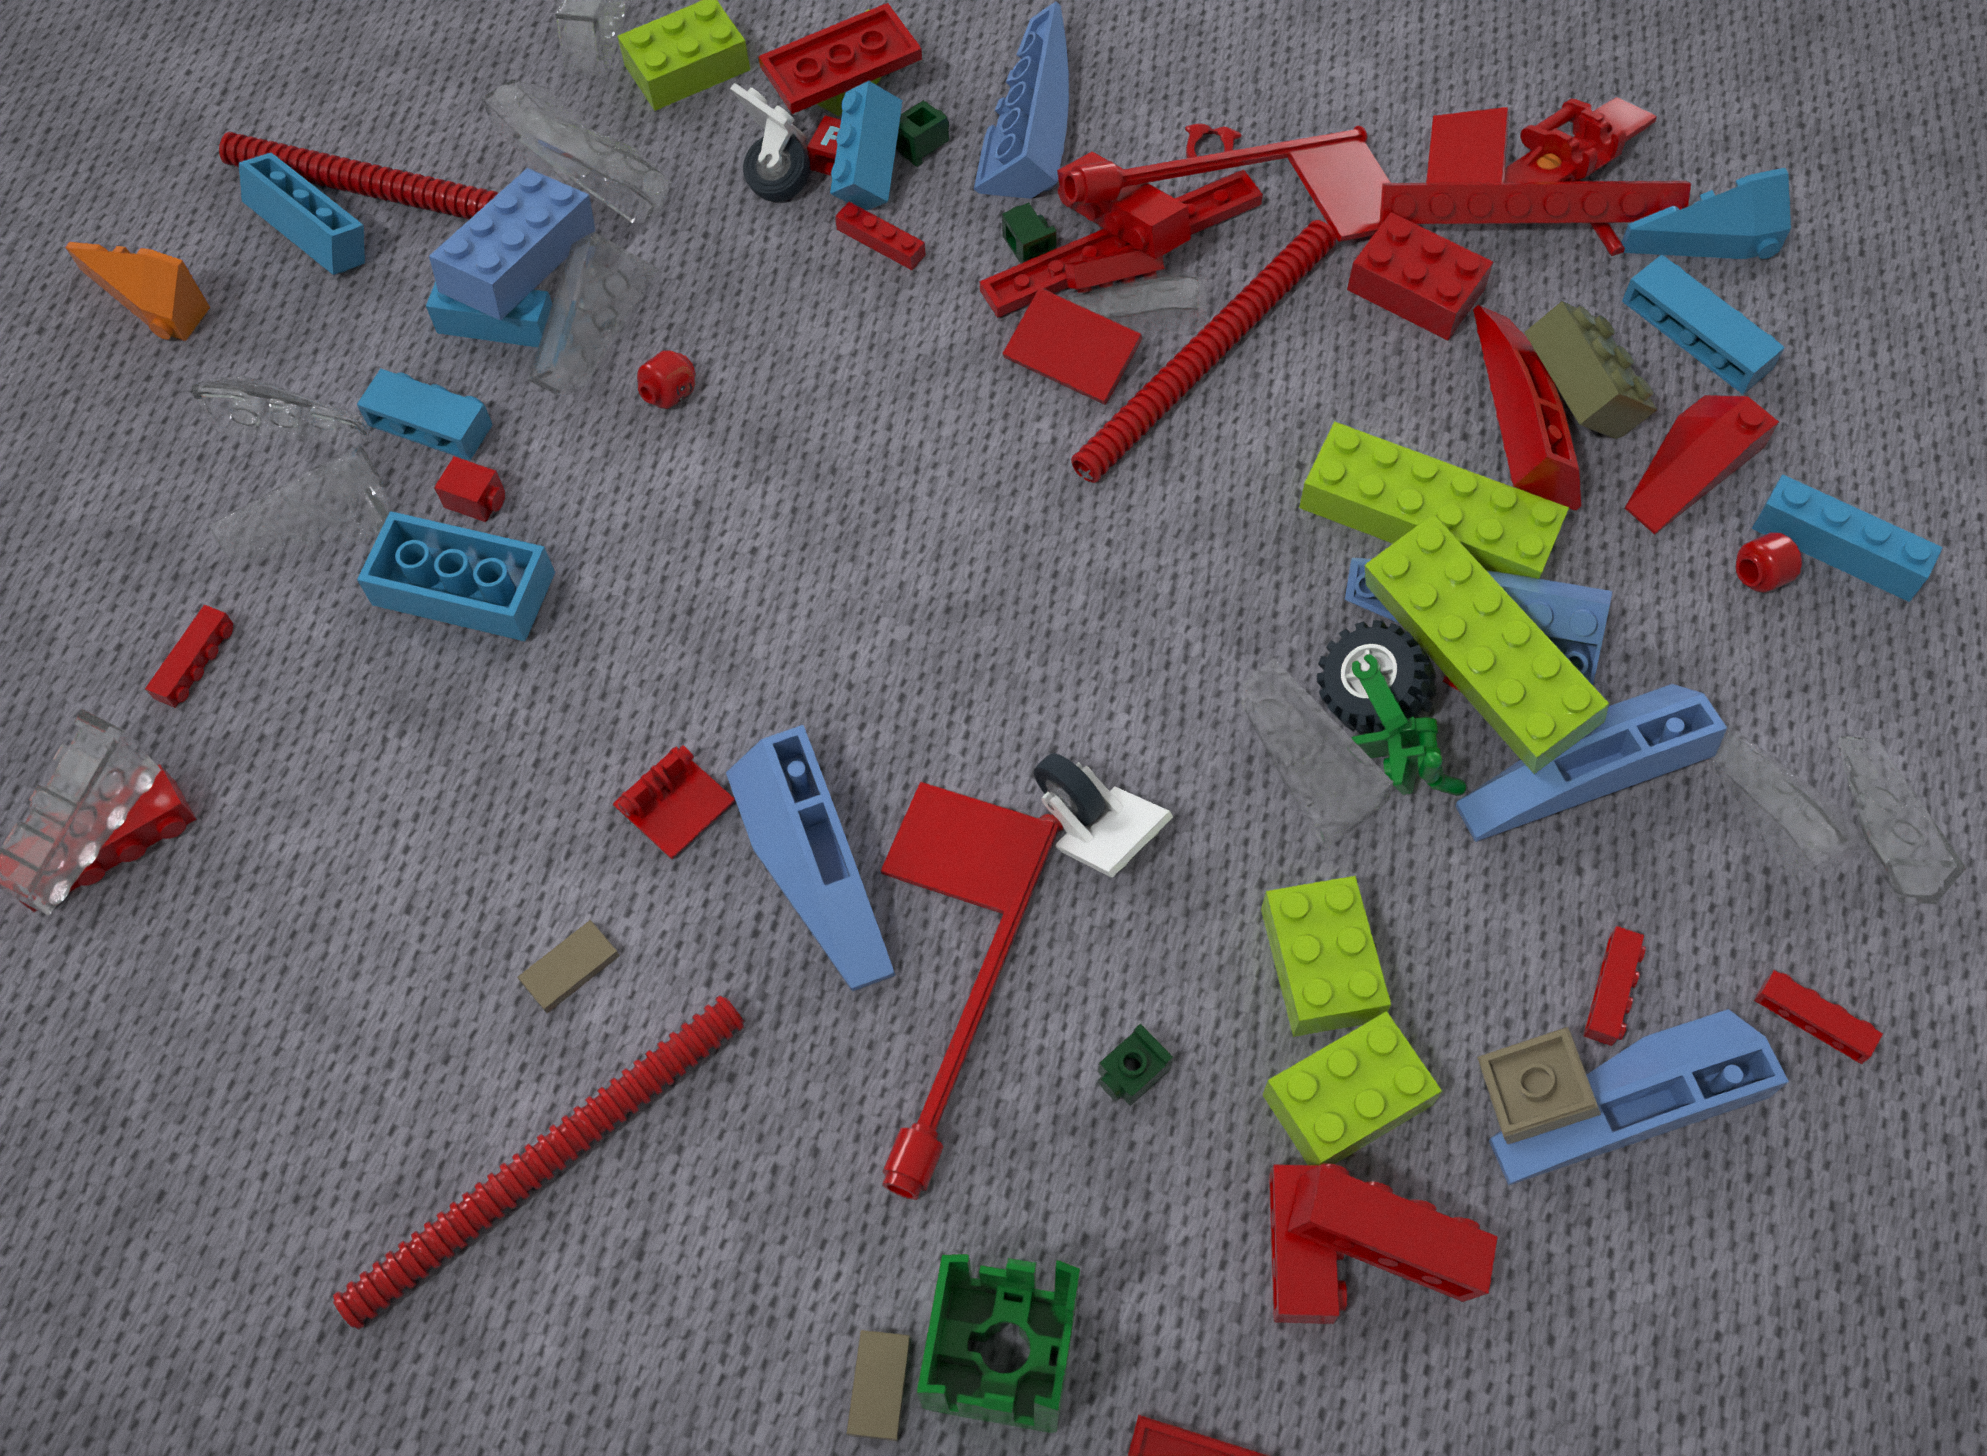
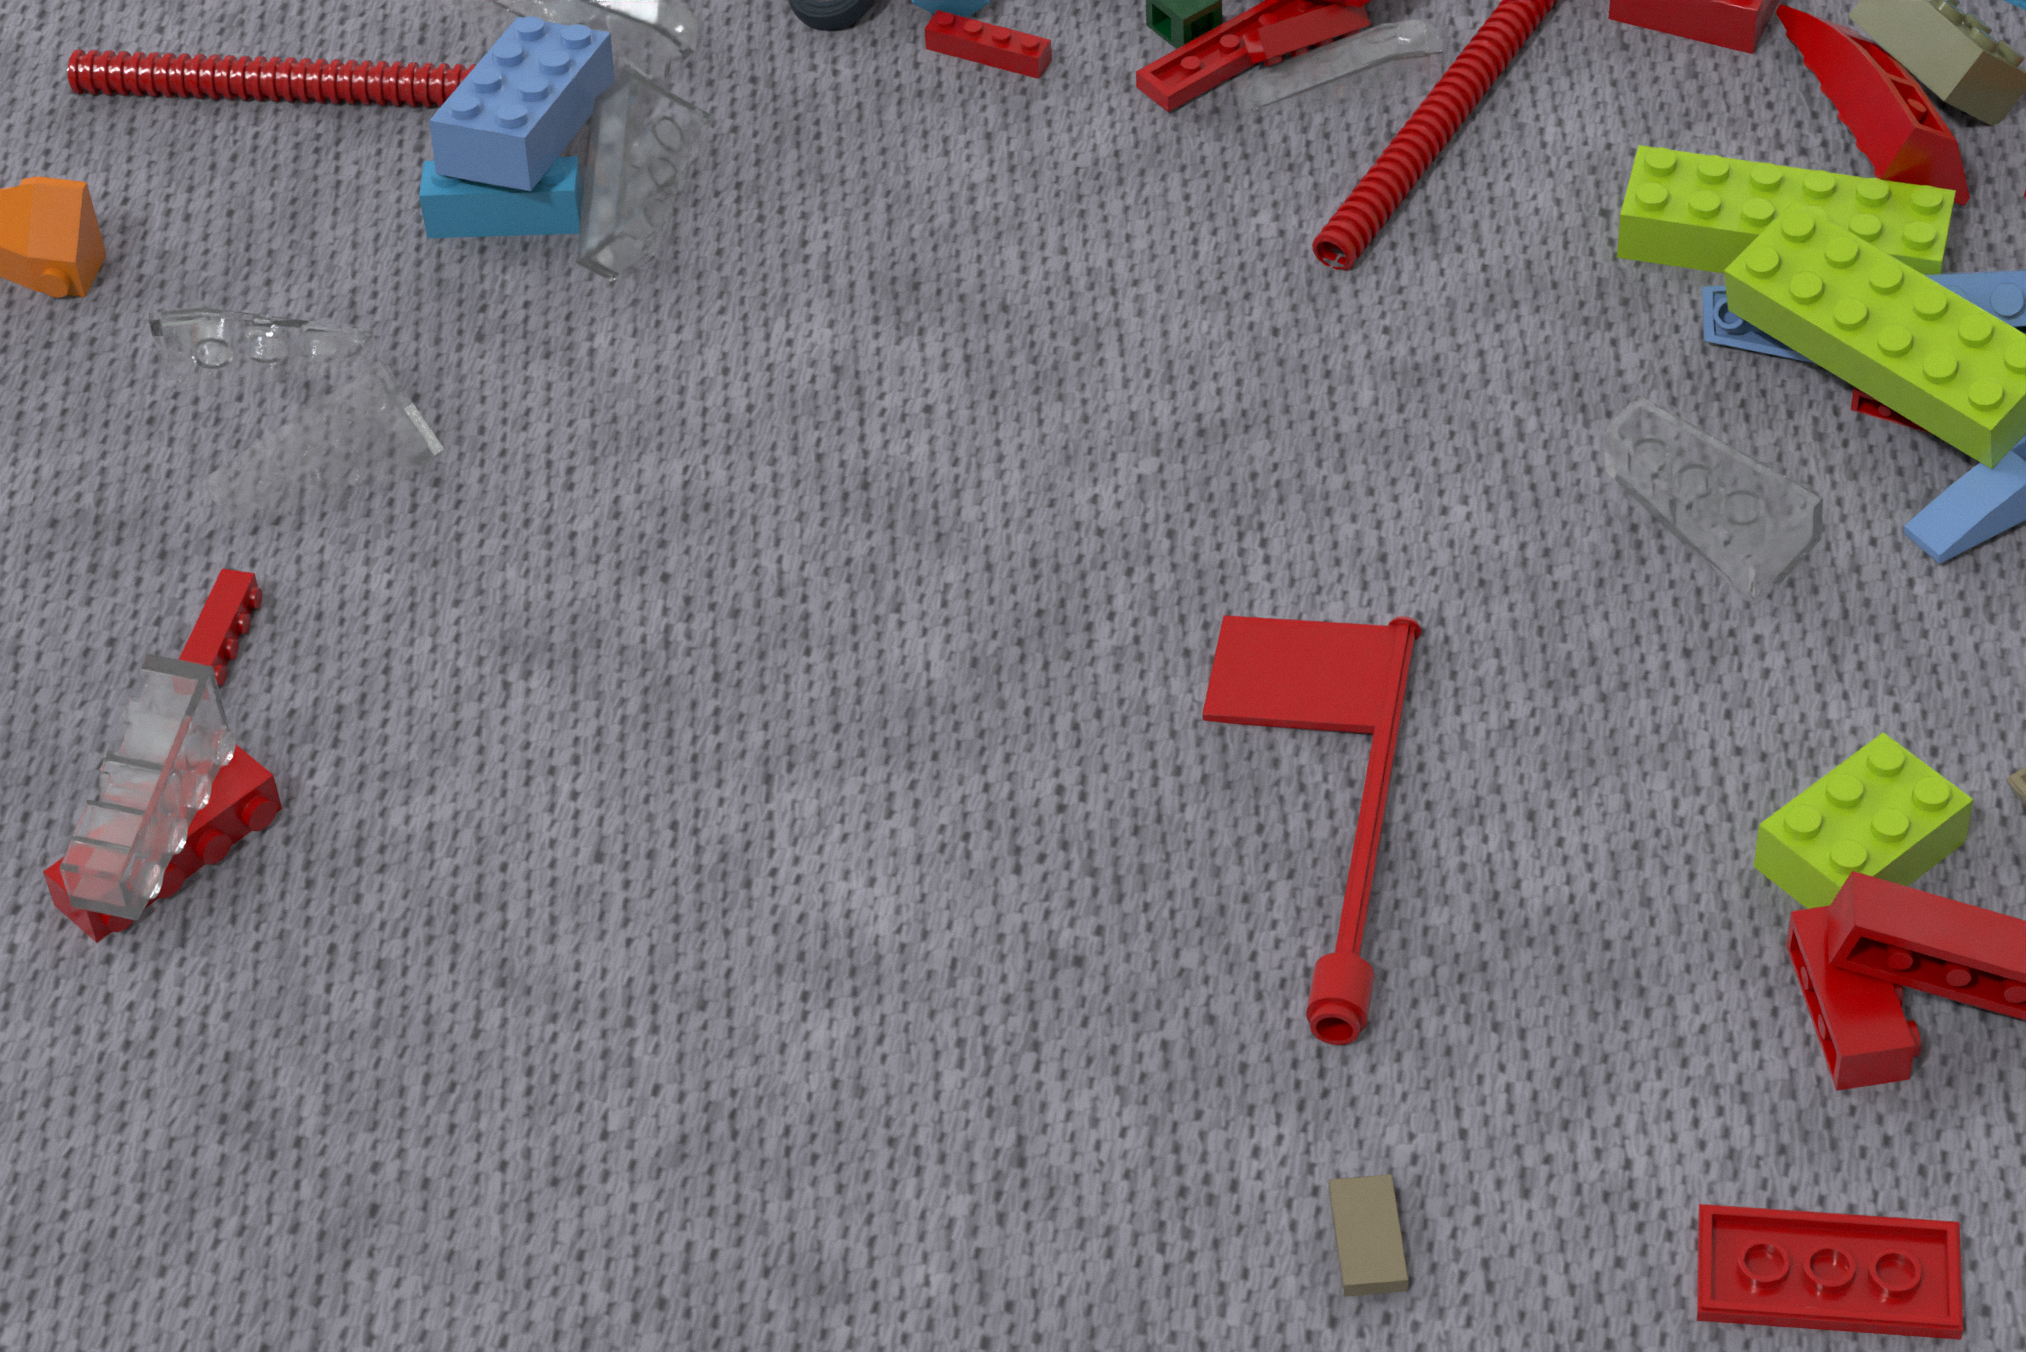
camera: 10 degrees left, 15 degrees down
(302, 213) = (209, 125): dark azure brick -> none
(425, 414) = (449, 321): dark azure brick -> none
(457, 576) = (554, 483): dark azure brick -> none
(470, 489) = (537, 393): red brick -> none
(535, 1164) = (862, 1081): red piece -> none
(568, 966) = (831, 879): dark tan tile -> none
(666, 379) = (757, 236): red head -> none
(674, 802) = (912, 683): red hinge -> none
(807, 852) = (1107, 699): medium blue wedge -> none
(974, 1309) = (1565, 1146): green piece -> none
(1072, 346) = (1277, 124): red tile -> none
(1100, 824) = (1450, 604): white plate -> none
(1128, 1084) = (1588, 853): dark green brick -> none
(1324, 955) = (1785, 698): lime brick -> none
(1378, 686) = (1785, 410): piece -> none

